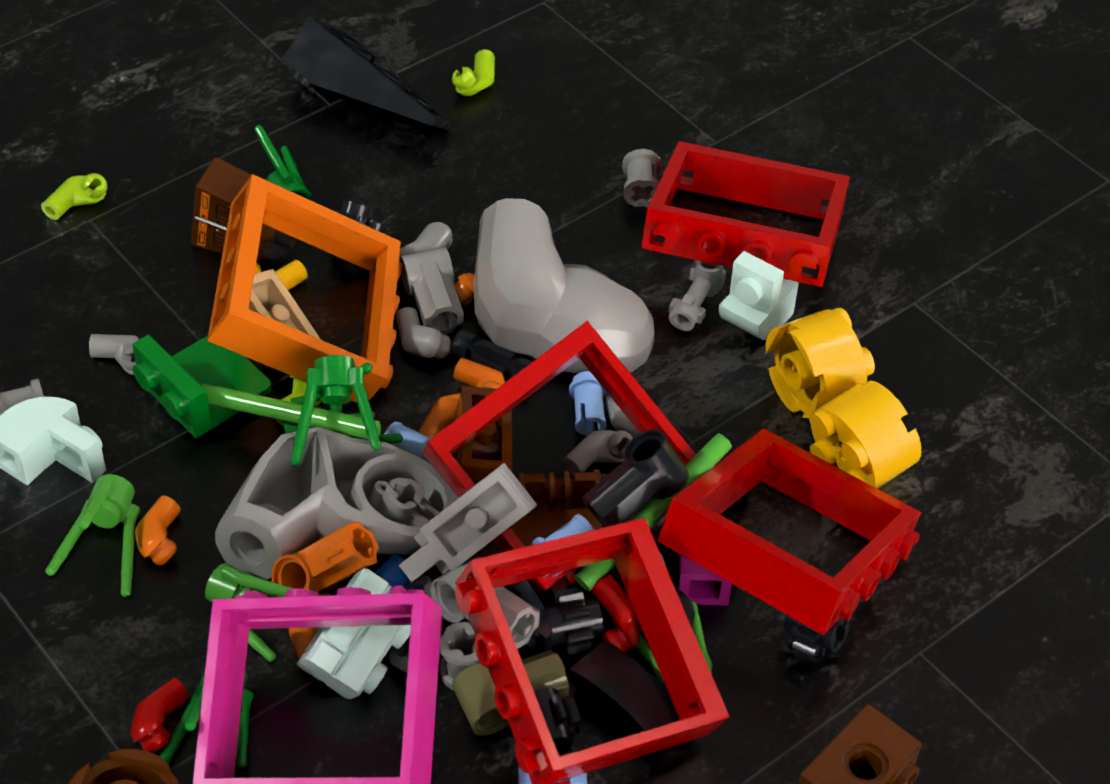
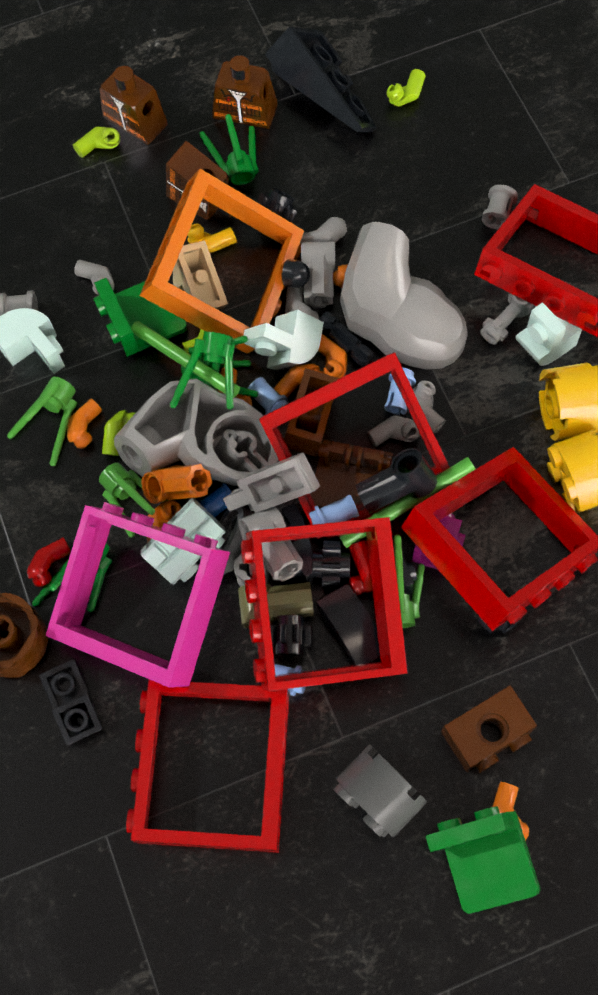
camera: 25 degrees right, 20 degrees up
(116, 141) = (132, 105): none -> reddish brown torso
(204, 532) = (111, 428): none -> lime arm
(270, 99) = (244, 94): none -> reddish brown torso
(407, 289) = (295, 273): none -> black hinge
(420, 366) = (289, 342): none -> light aqua brick

